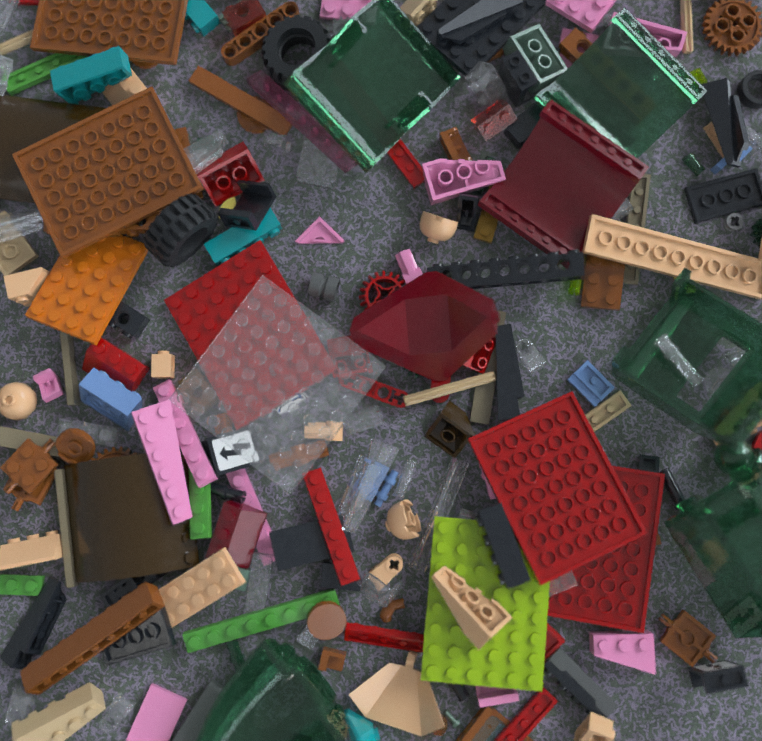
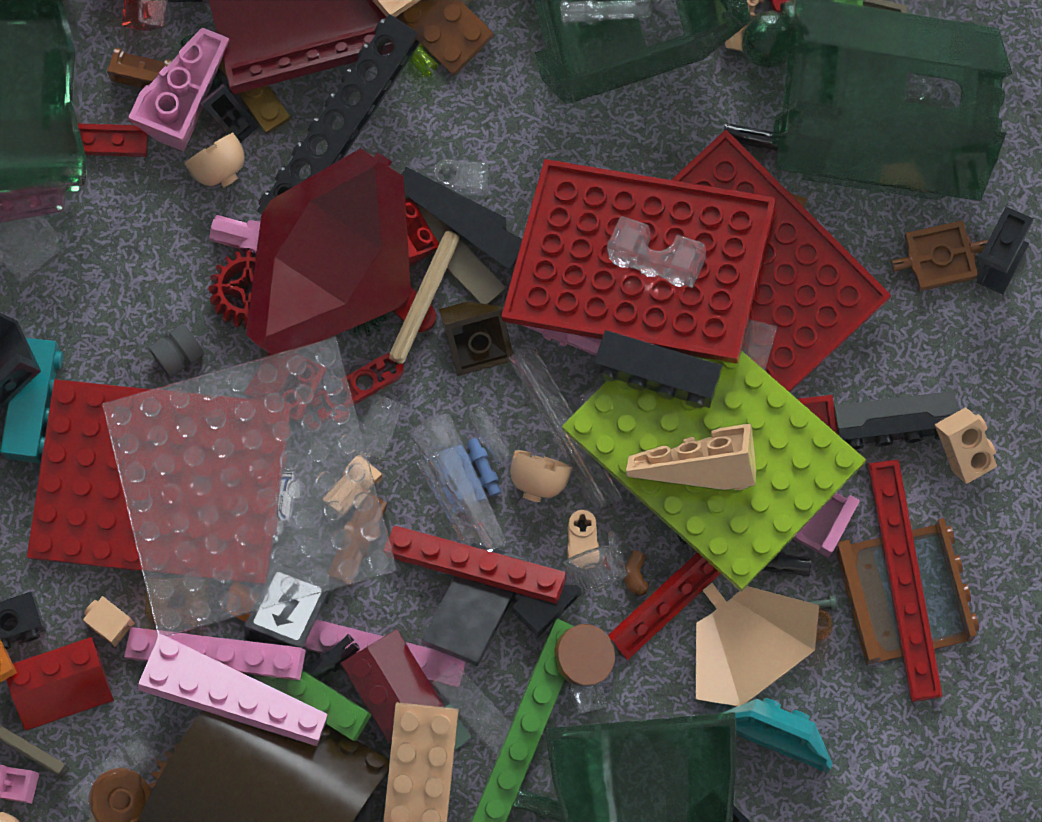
camera: 55 degrees left, 10 degrees down
(109, 398) = (95, 716): medium blue slope -> none
(319, 233) = (105, 307): bright pink tile -> none
(332, 659) = (639, 690): dark orange panel -> none
(568, 512) = (677, 264): none -> clear arch
(590, 383) = (553, 134): medium blue plate -> none
(607, 410) = (602, 137): tan tile -> none
(625, 648) = (895, 333): bright pink wedge -> none
(649, 463) = (700, 139): black plate -> none

